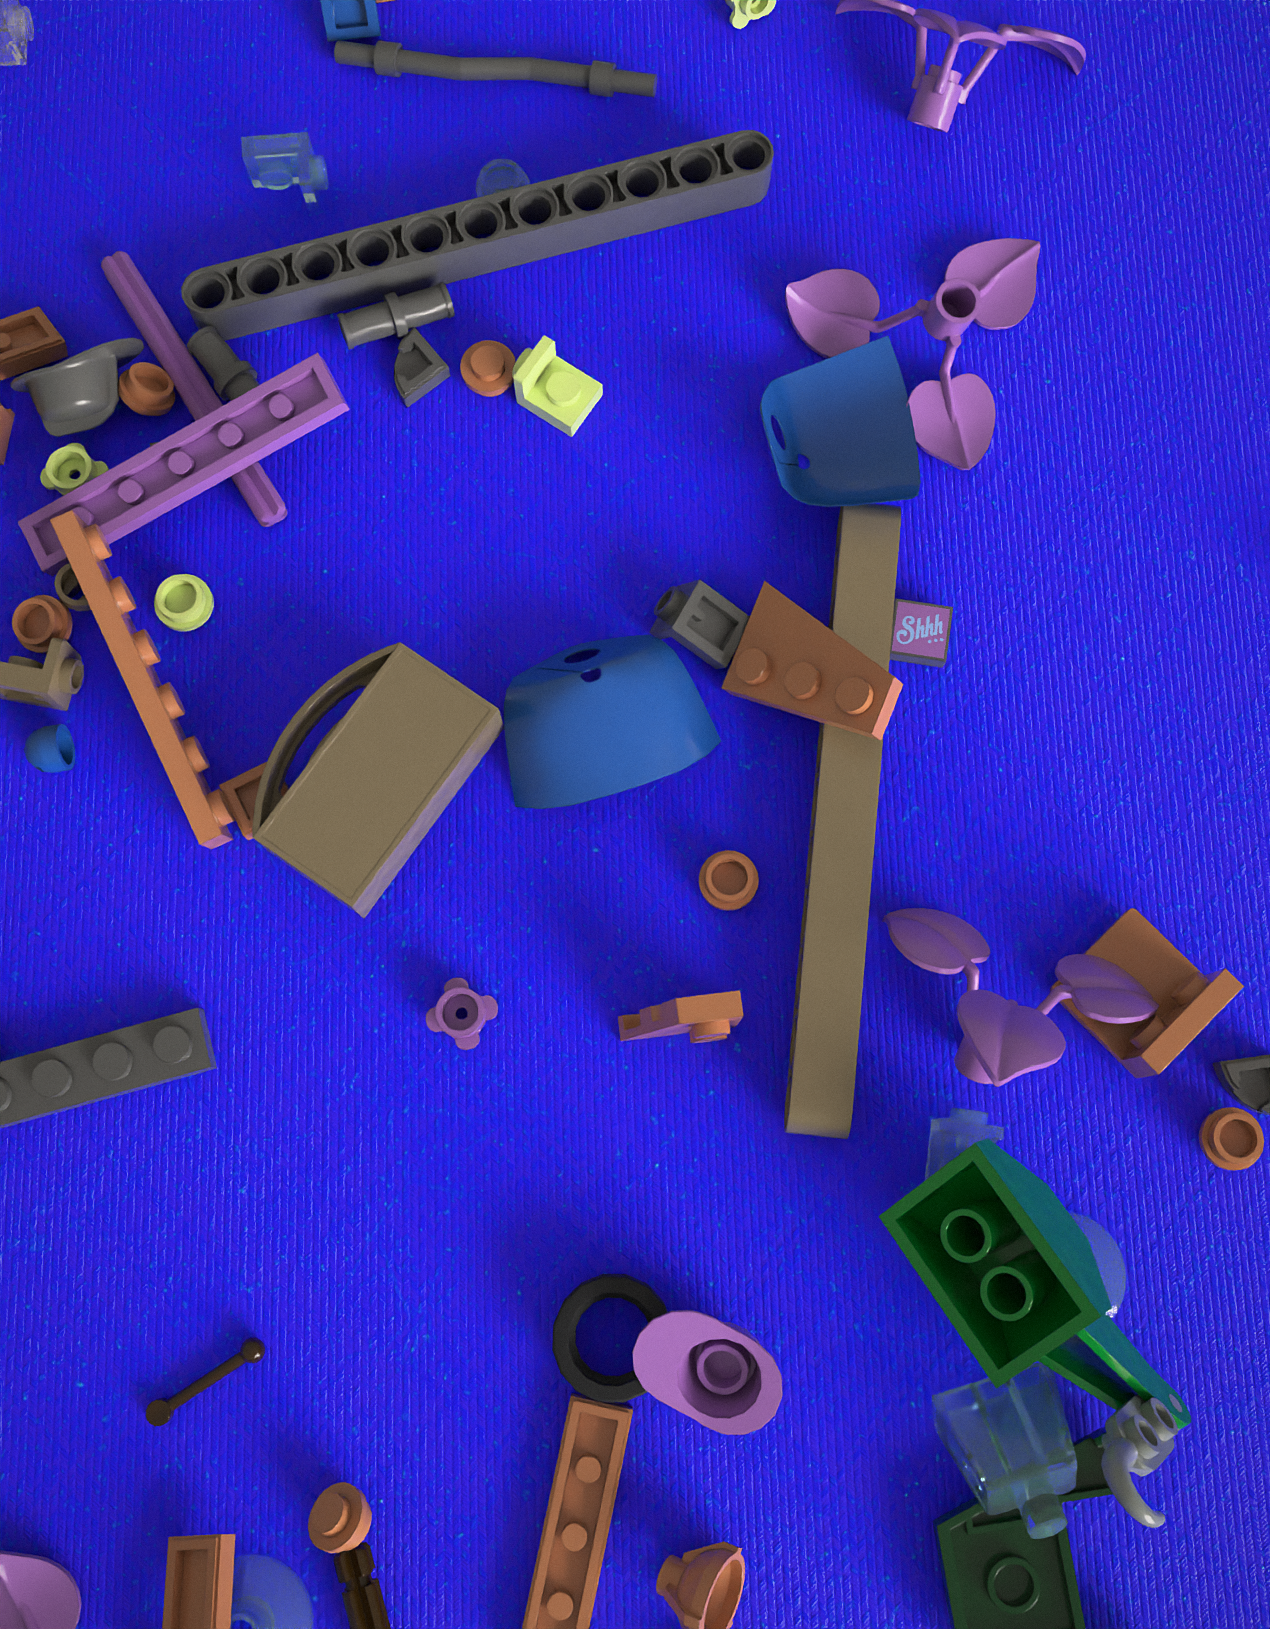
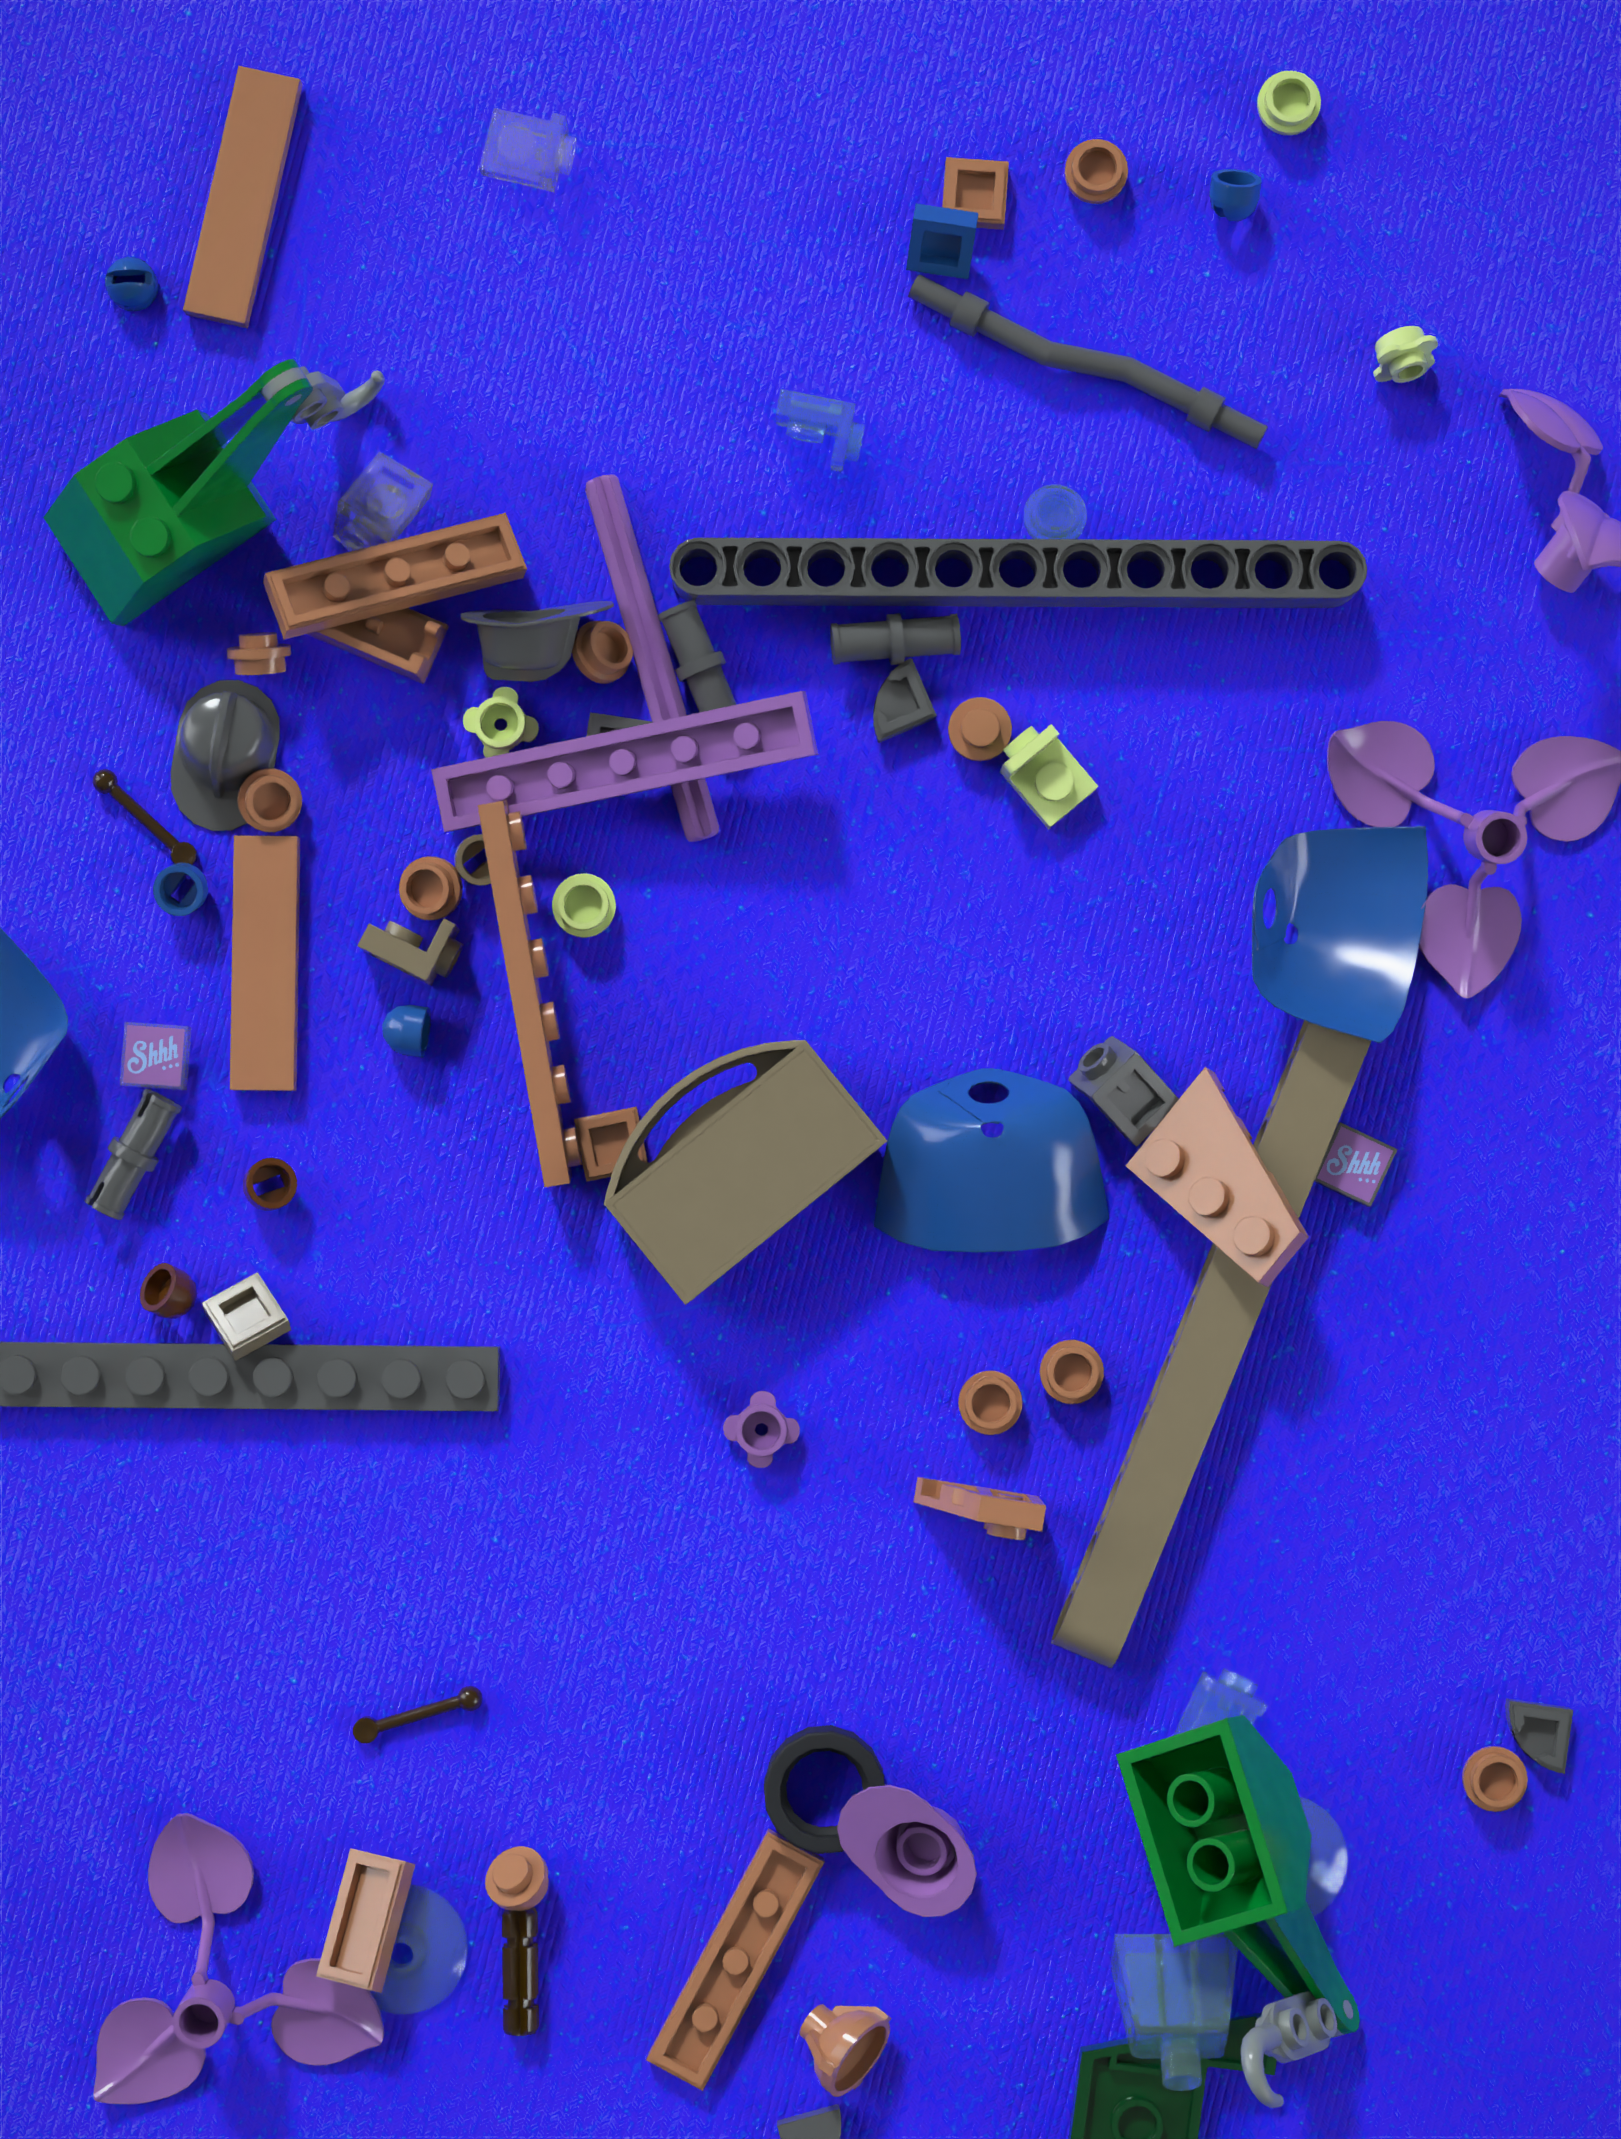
camera: 15 degrees right, 10 degrees up
(663, 929) = (990, 1402): none -> nougat plate
(999, 1034) = (1280, 1622): medium lavender plant -> none
(1183, 994) = (1452, 1611): nougat bracket -> none

